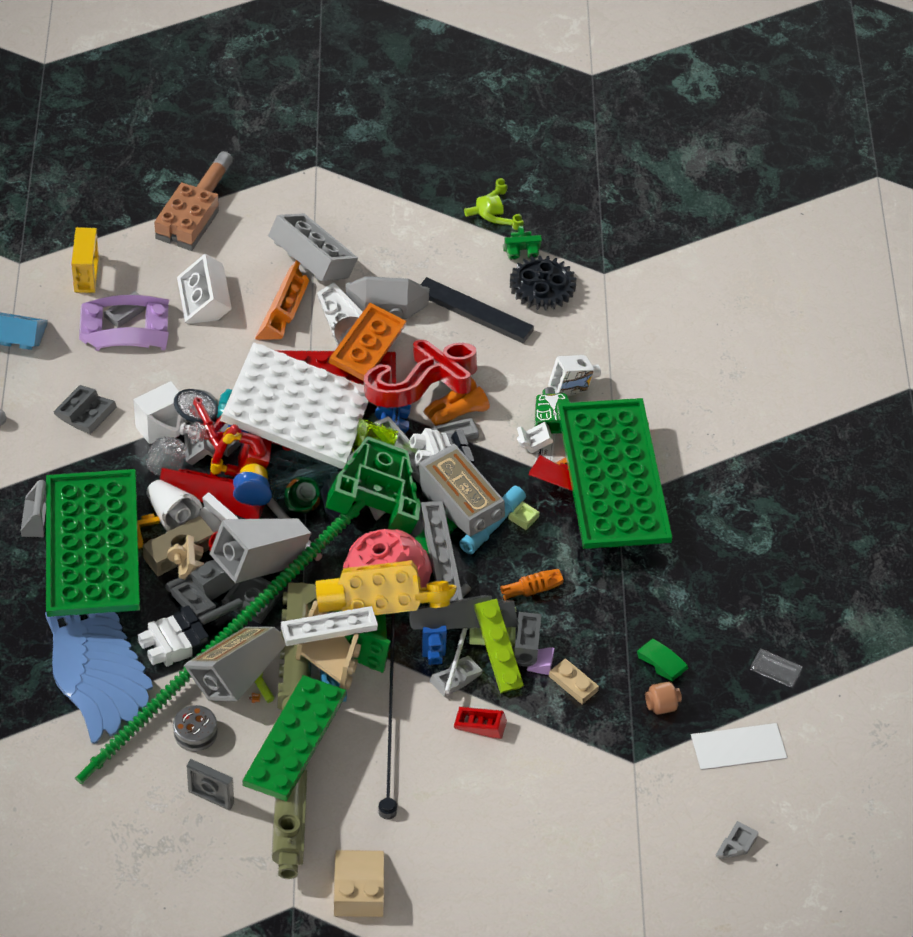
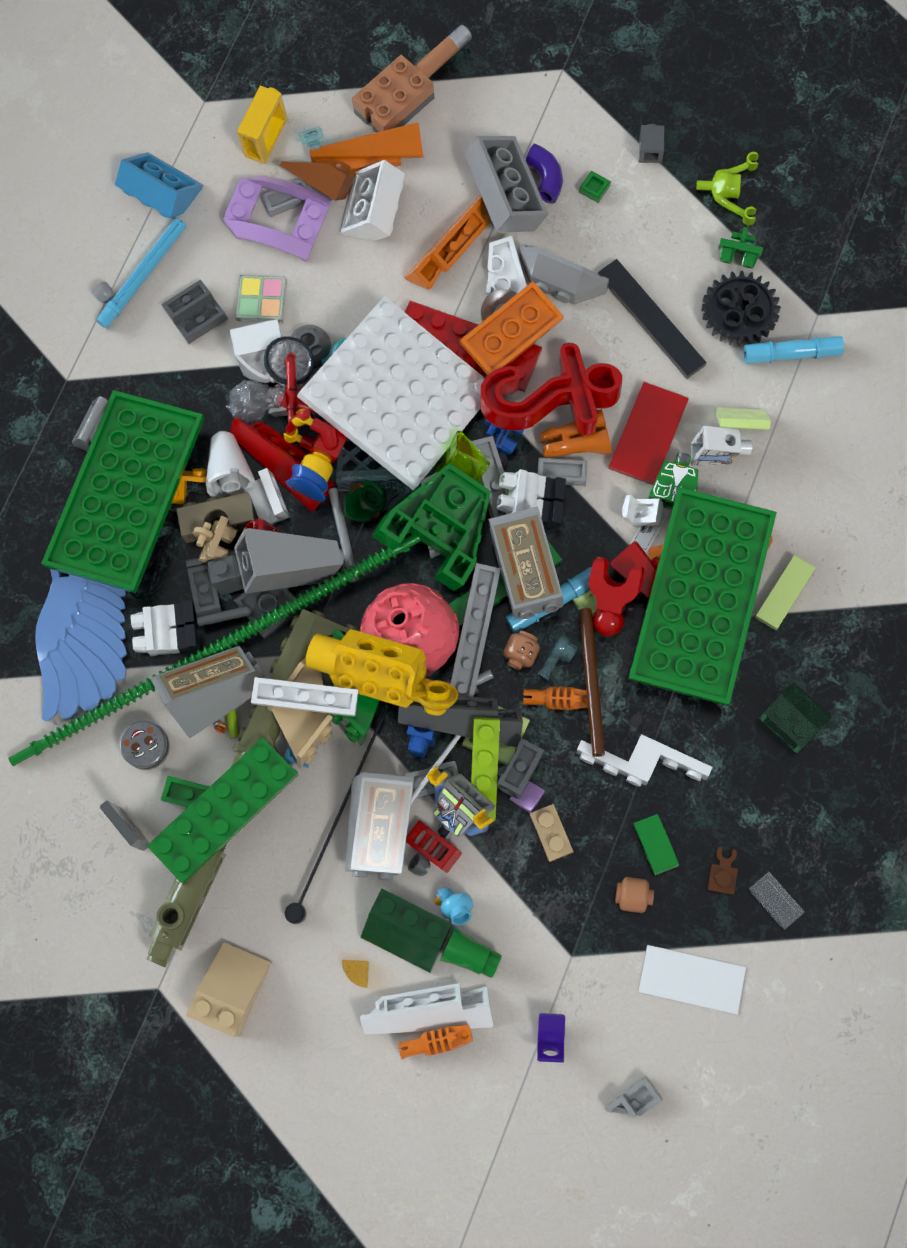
camera: 35 degrees right, 25 degrees up
(13, 422) = (132, 284): none -> medium azure axle
(130, 260) = (311, 137): none -> clear light blue plate
(136, 382) = (261, 298): none -> tile
(157, 282) = (328, 177): none -> dark orange slope
(174, 261) = (373, 148): none -> orange wedge
(244, 751) = (181, 791): none -> green plate
(341, 232) = (548, 170): none -> dark purple cylinder
(383, 235) = (594, 186): none -> green tile
(415, 194) = (651, 143): none -> dark grey brick
(428, 709) = (378, 824): none -> slope
(461, 833) = (357, 971): none -> clear yellow tile
(476, 737) = (419, 864): none -> dark grey hinge
(485, 558) = (521, 650): none -> nougat head
(489, 784) = (406, 930): none -> dark green slope
(491, 676) = (459, 805): none -> torso
(512, 386) = (648, 433): none -> red tile
(518, 551) = (562, 650): none -> clear light blue bar
(521, 754) = (454, 906): none -> medium azure animal
(539, 837) = (429, 1010): none -> white wedge
(542, 497) = (612, 596): none -> red piece
(551, 782) = (470, 954): none -> green plant
(554, 856) = (437, 1041): none -> orange hinge
(555, 560) = (592, 684): none -> reddish brown piece
(586, 349) = (743, 418): none -> yellowish green tile
(597, 299) = (793, 349): none -> medium azure piece
(622, 607) = (644, 760): none -> white bracket
(645, 816) = (551, 1037): none -> dark purple bracket
(675, 460) = (785, 592): none -> yellowish green tile
(725, 541) = (795, 717): none -> clear green slope
(725, 666) = (722, 876): none -> reddish brown plate

